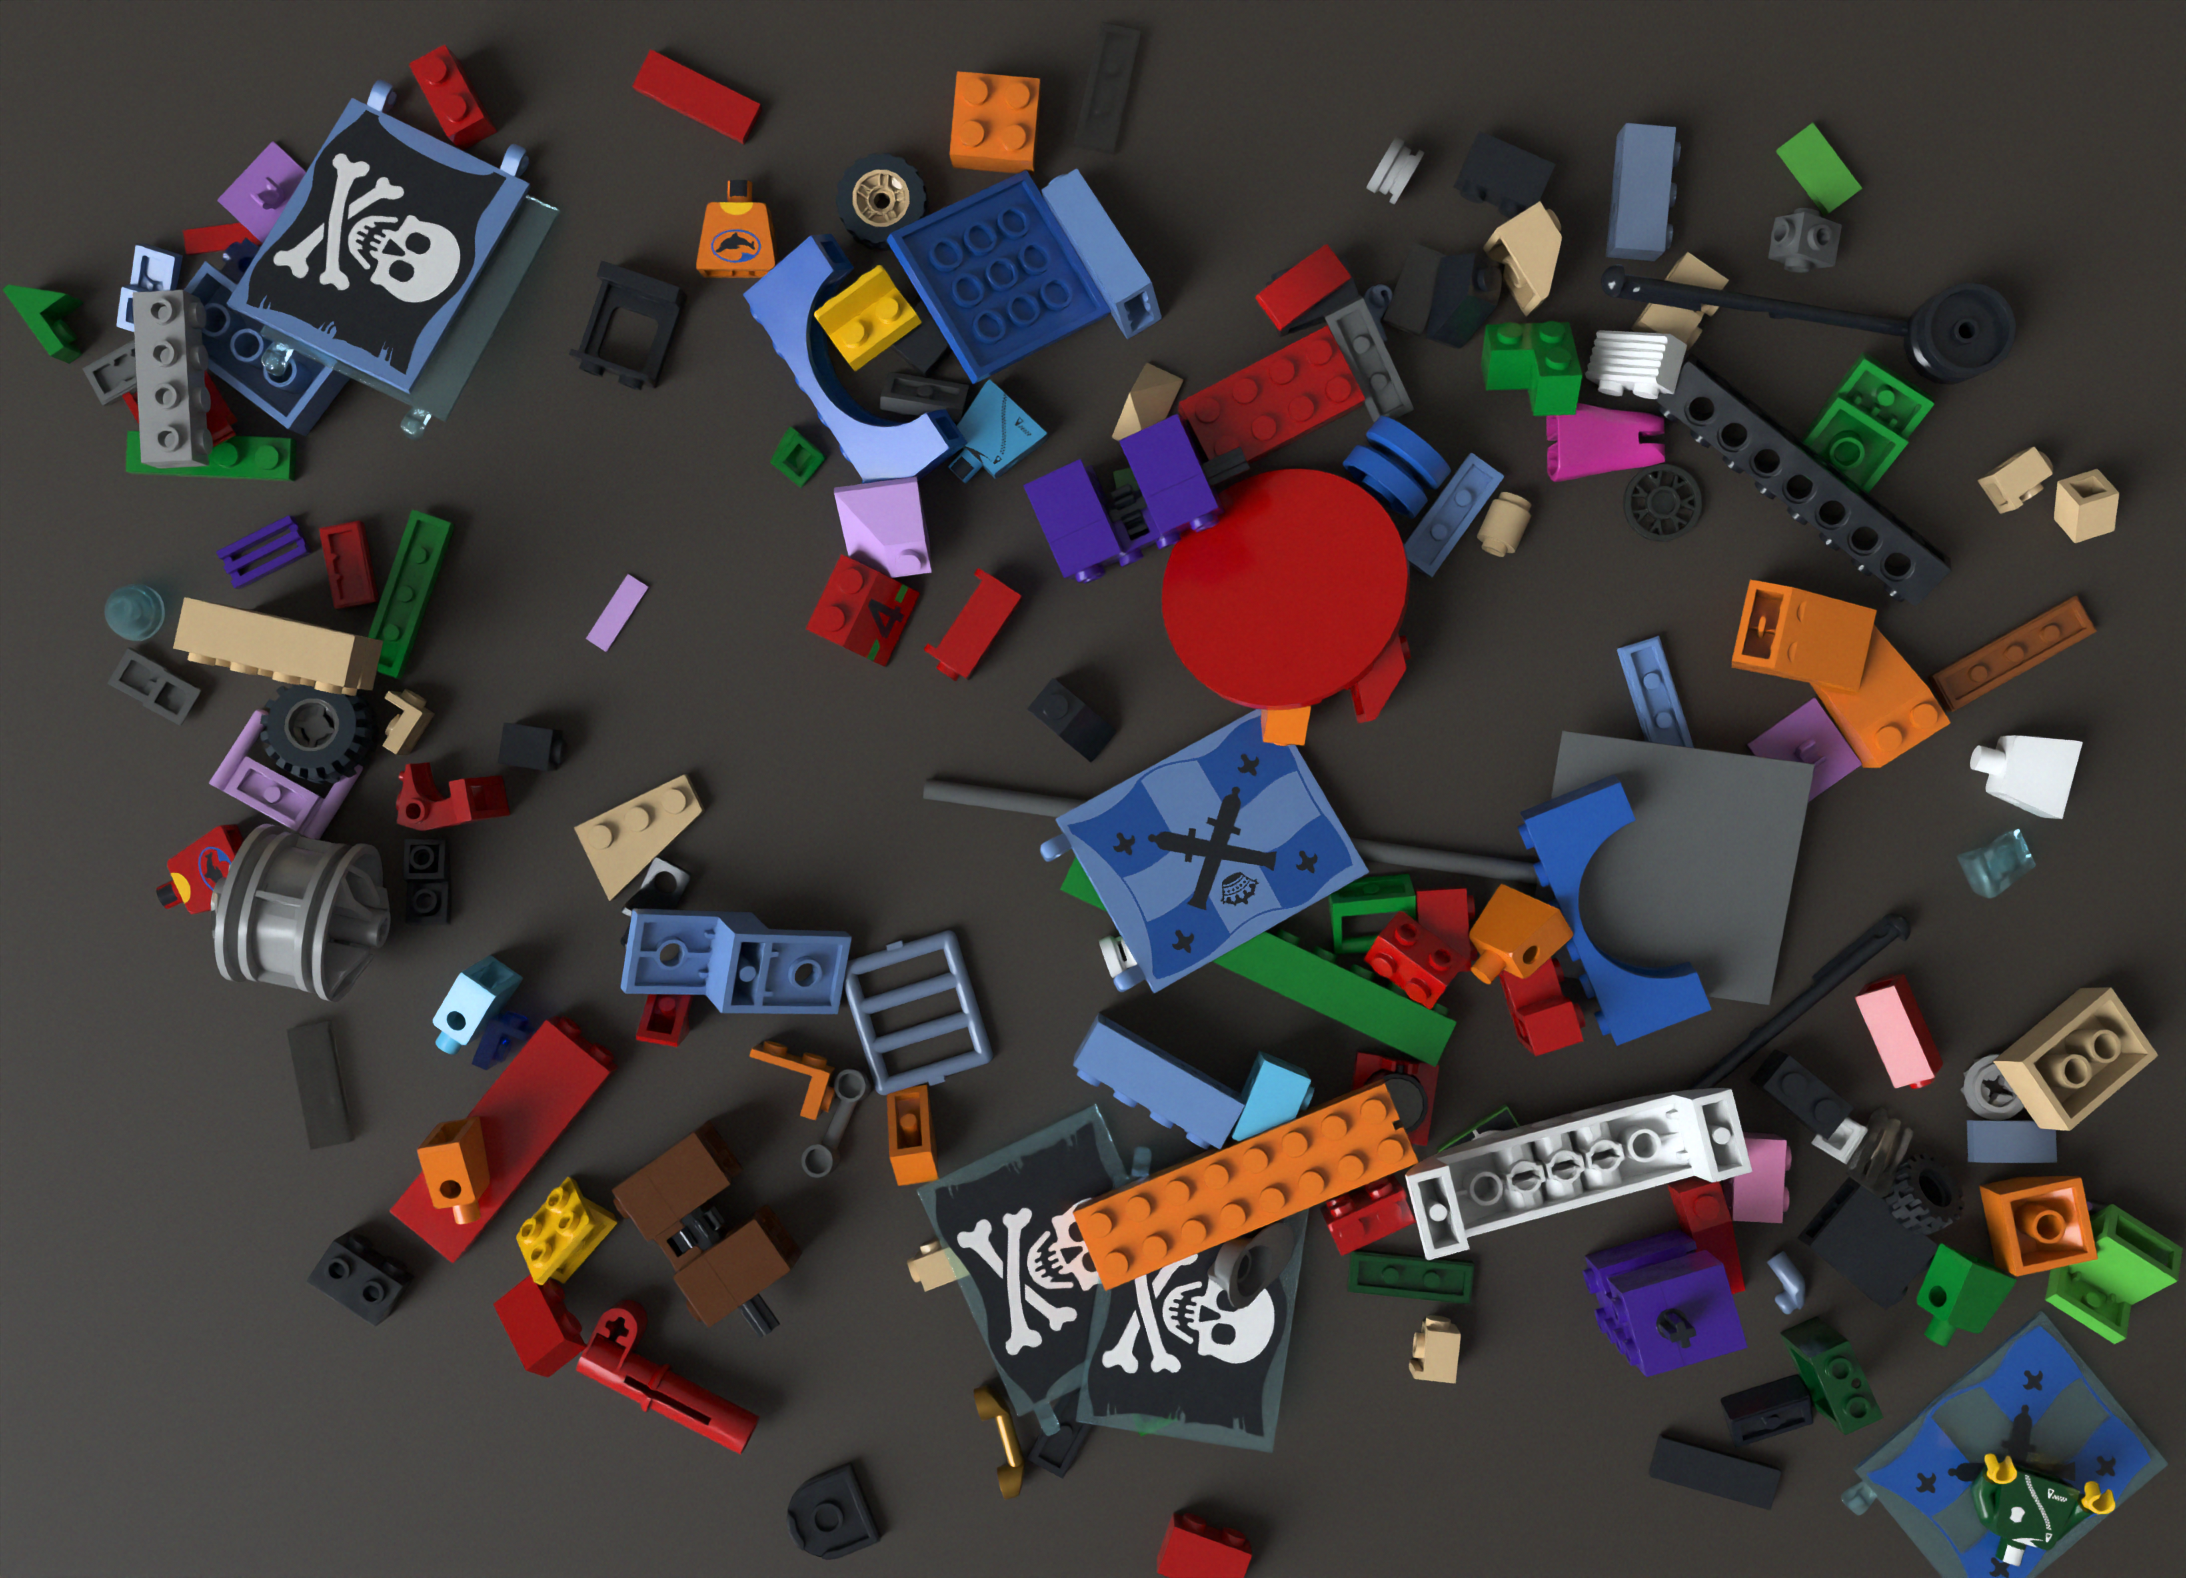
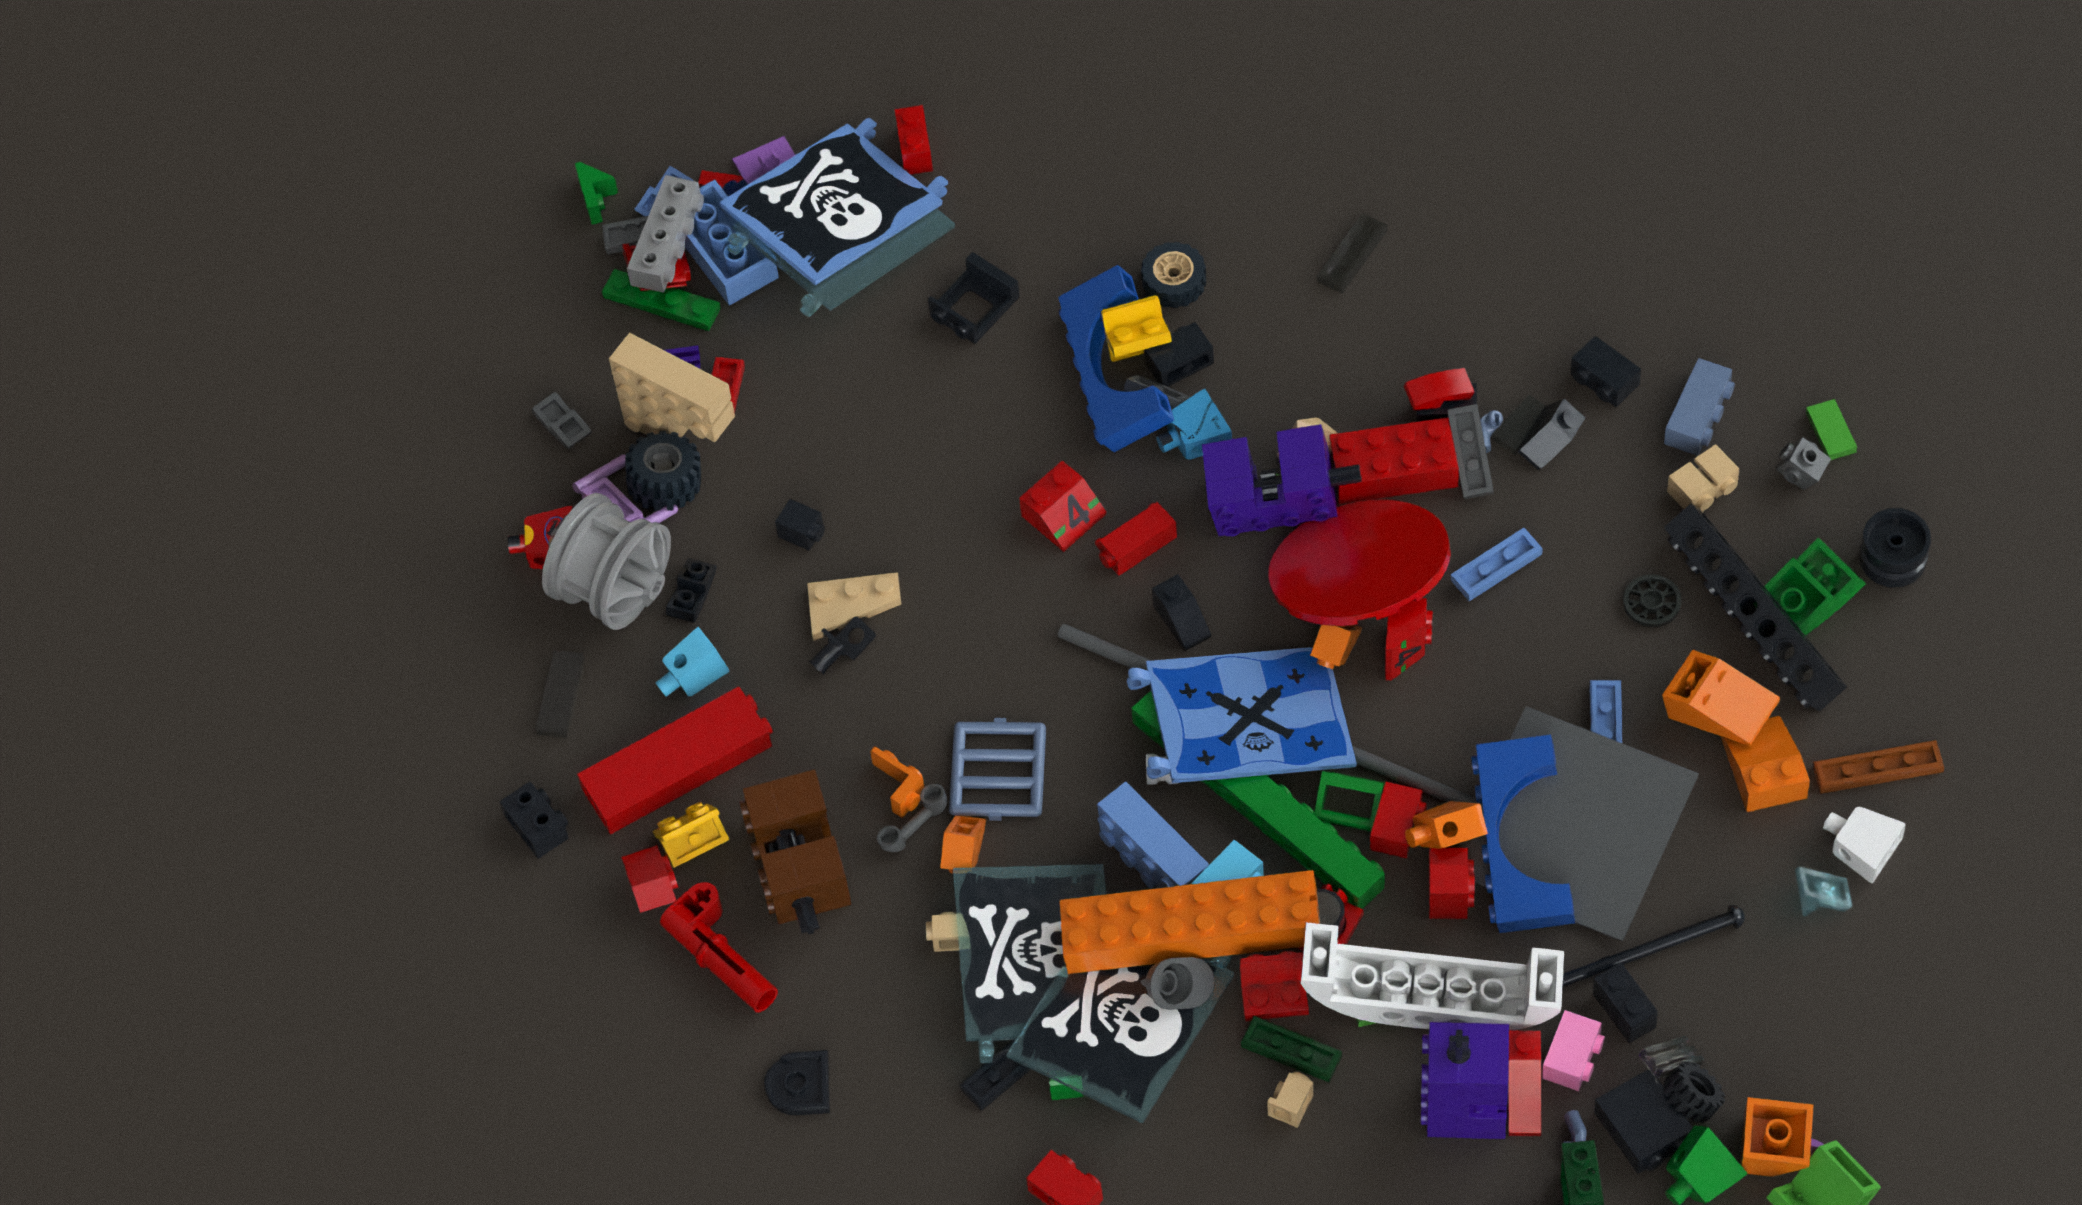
camera: 25 degrees right, 30 degrees down
(134, 612) = (567, 374): clear light blue brick -> none
(407, 728) = (723, 489): tan bracket -> none
(409, 589) = (757, 412): green plate -> none
(456, 1167) = (640, 746): orange torso -> none
(470, 800) = (742, 542): red tile -> none
(495, 1042) = (698, 694): clear blue bracket -> none
(617, 612) = (892, 467): lavender window -> none
(665, 1019) = (823, 709): red slope -> none
(697, 97) = (1074, 185): red tile -> none
(735, 961) = (887, 686): medium blue bracket -> none
(737, 236) = (1066, 265): orange torso -> none
(797, 457) = (1055, 407): green slope -> none
(885, 526) = (1100, 453): lavender slope -> none
(991, 1406) = (945, 1091): pearl gold bar -> none
(995, 122) = (1268, 248): orange brick -> none
(998, 276) = (1235, 331): blue plate -> none
(1103, 253) = (1311, 343): medium blue slope -> none
(1394, 170) = (1530, 346): light grey wheel -> none
(1397, 466) = (1467, 515): blue wheel -> none
(1414, 959) = (1366, 821): red bracket -> none
(1504, 524) = (1533, 579): tan brick -> none
(1530, 254) = (1604, 413): tan slope -> none
(1535, 359) = (1583, 479): green brick -> none
(1601, 442) = (1620, 546): dark pink piece -> none
(1636, 363) = (1657, 500): white brick -> none
(1691, 297) = (1708, 467): black bar -> none
(1809, 738) = (1713, 791): medium lavender piece -> none
(1843, 1140) = (1647, 1039): white slope -> none
(1899, 1031) = (1712, 980): brick -> none
(1977, 1095) = (1774, 1034): light grey gear -> none
(2010, 1142) = (1775, 1082): sand blue slope -> none
(2016, 479) = (1912, 651): tan brick -> none
(2075, 1058) = (1836, 1029): tan brick -> none
(2086, 505) = (1955, 679): tan brick -> none

